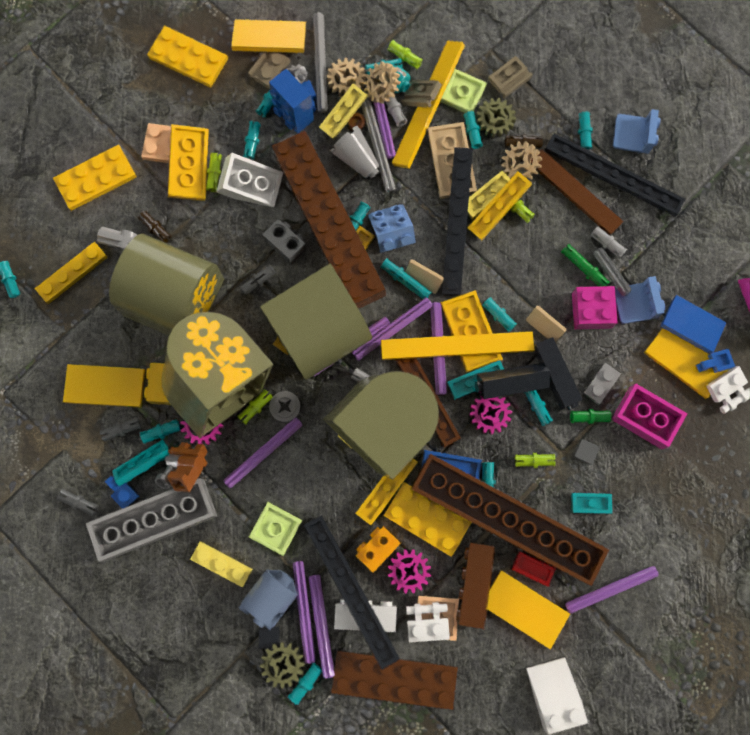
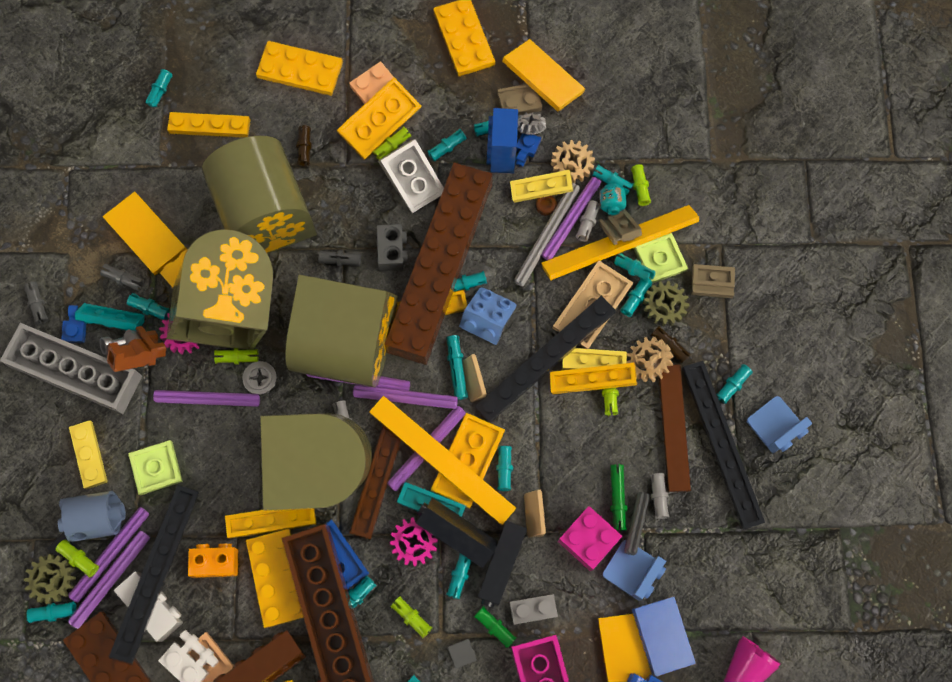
camera: 45 degrees right, 5 degrees down
(115, 238) = (266, 128): light grey piece -> none
(288, 633) = (77, 558): none -> lime pin
(320, 62) = (564, 131): light grey axle -> none
(356, 153) = (518, 228): light grey cone -> none
(382, 73) = (594, 190): tan gear -> none
(420, 578) = (216, 596): dark pink gear -> none
(454, 111) = (634, 267): none -> teal pin

